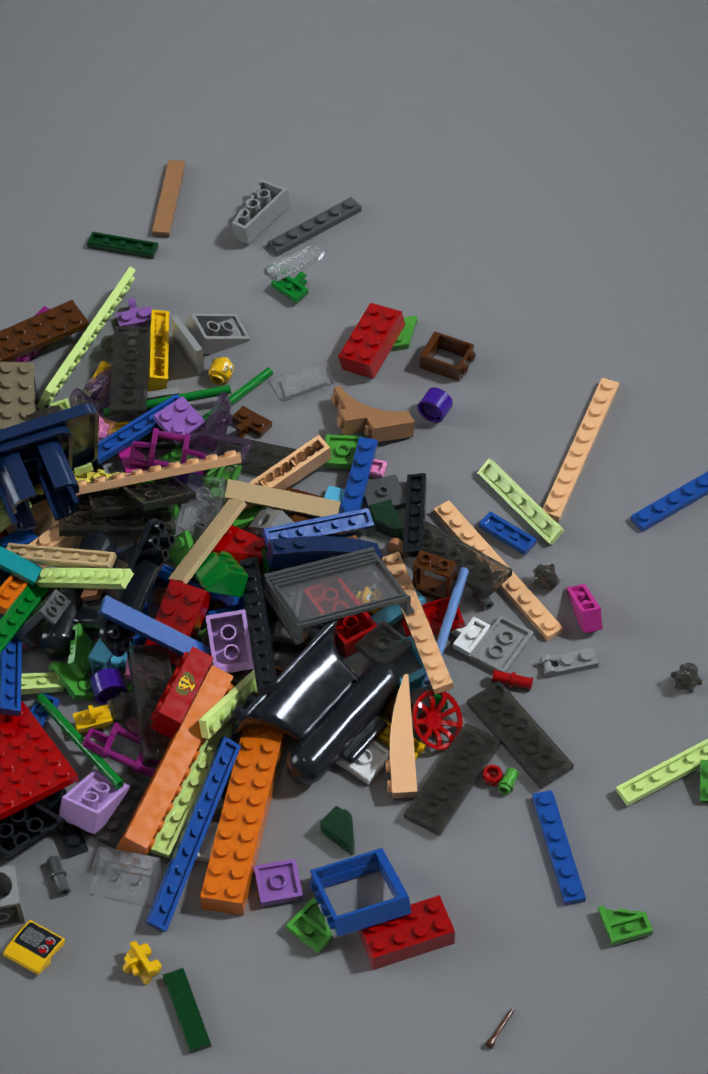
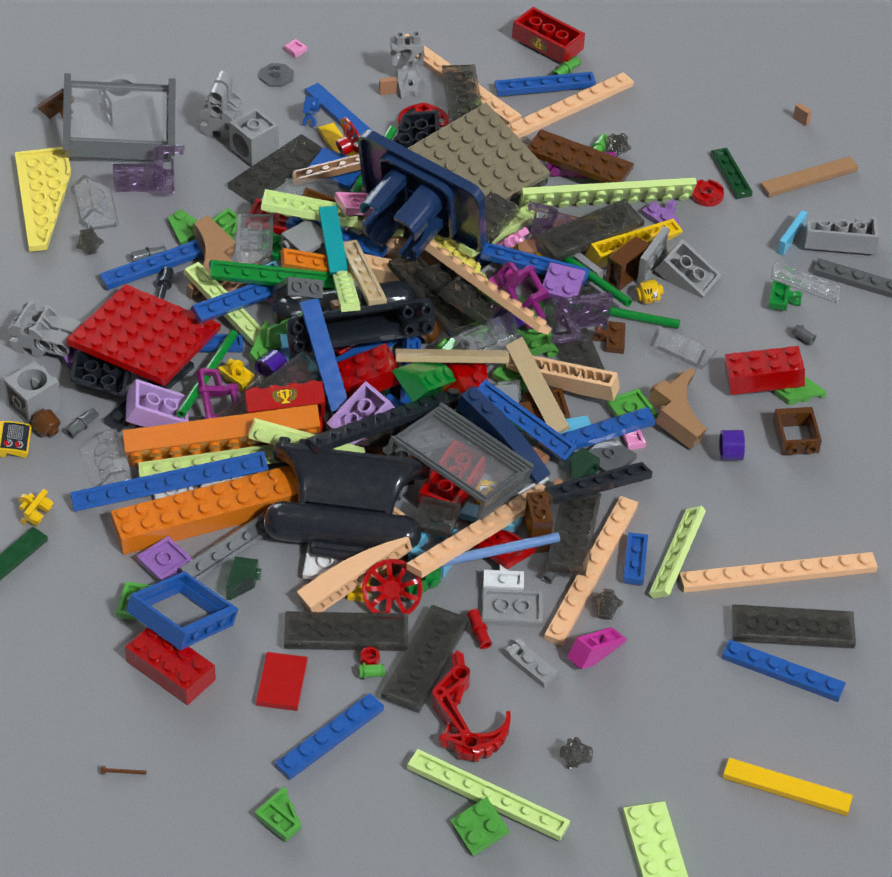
camera: 55 degrees right, 5 degrees down
(18, 314) = (601, 143): none -> bright green pin
(30, 301) = (618, 143): none -> clear smoke rock
(39, 905) = (46, 423): none -> reddish brown head
(96, 162) = (802, 114): none -> nougat tile
(142, 271) = (708, 199): none -> red tile
(183, 365) = (624, 263): none -> reddish brown window
(227, 242) = (792, 232): none -> medium azure tile
(298, 823) = (226, 548): none -> plate
(344, 296) = (800, 332): none -> dark grey pin
(476, 855) = (282, 681): none -> red tile
(577, 744) = (445, 699): none -> red piece
(643, 467) = (793, 626): none -> clear smoke plate

